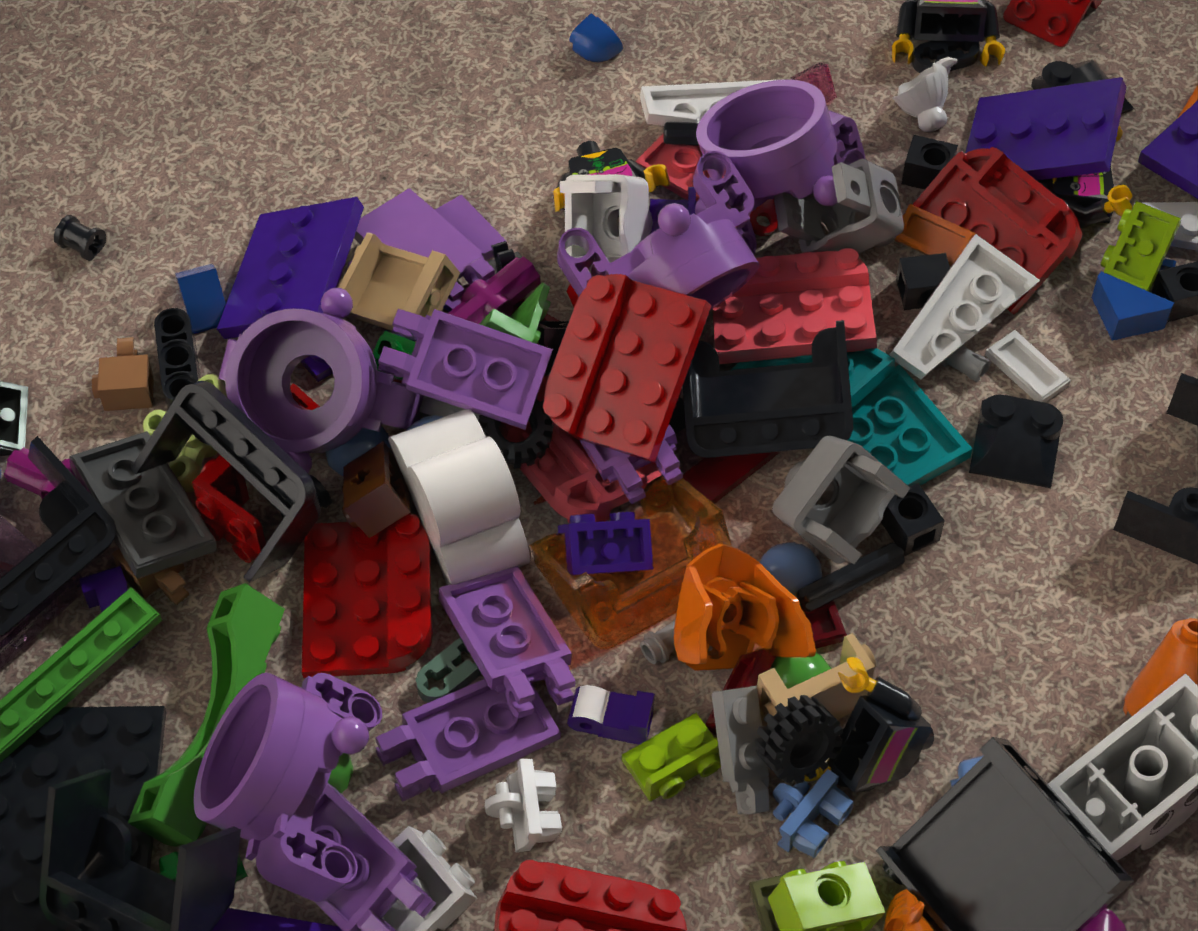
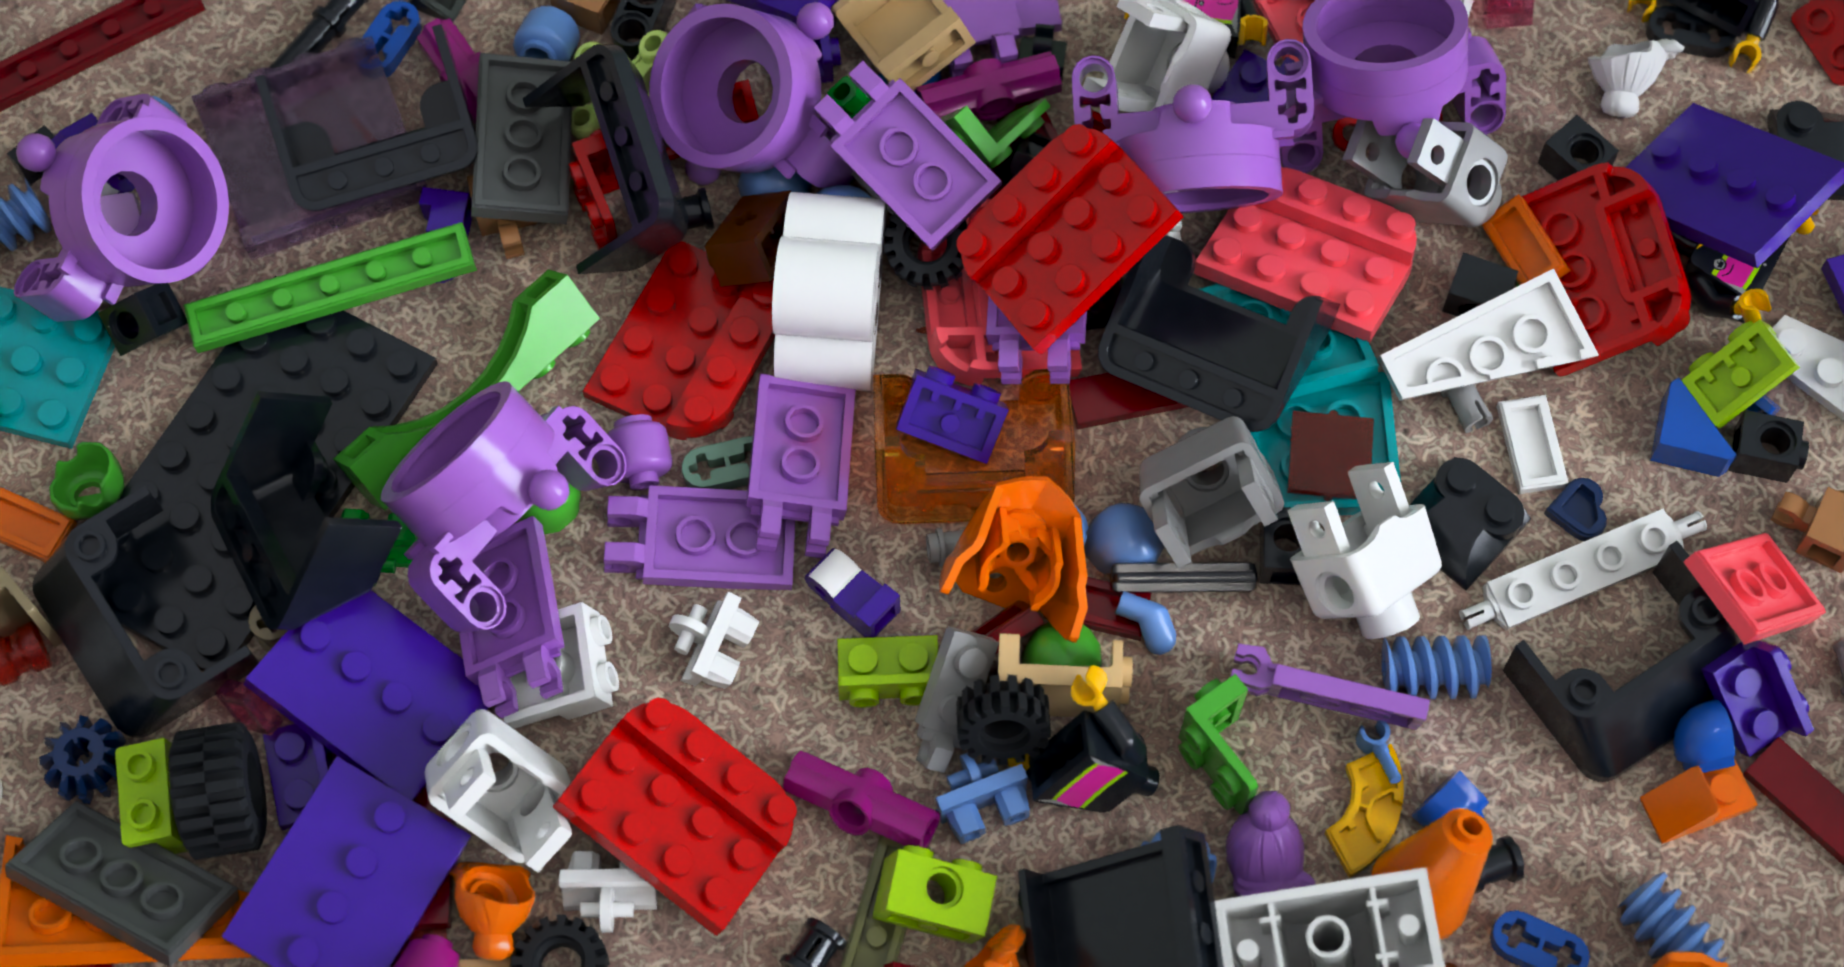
camera: 30 degrees right, 10 degrees up
(111, 421) = (547, 34): none -> medium blue head
(385, 685) = (645, 450): none -> medium lavender head
(720, 864) = (861, 801): none -> magenta piece
(850, 617) = (1153, 621): none -> medium blue arm
(900, 438) = (1324, 451): none -> clear red piece
(962, 685) = (1202, 745): none -> bright green bracket
(979, 489) = (1368, 560): none -> white piece
(1011, 599) = (1328, 691): none -> medium lavender tile
(1042, 735) = (1266, 848): none -> medium lavender hair
(1060, 627) = (1379, 749): none -> medium blue hand
(1072, 546) = (1437, 665): none -> medium blue piece
(1089, 395) = (1579, 509): none -> dark blue tile
(1097, 681) = (1370, 816): none -> yellow tile
(1119, 434) = (1580, 570): none -> white plate
(1144, 635) = (1453, 793): none -> blue piece

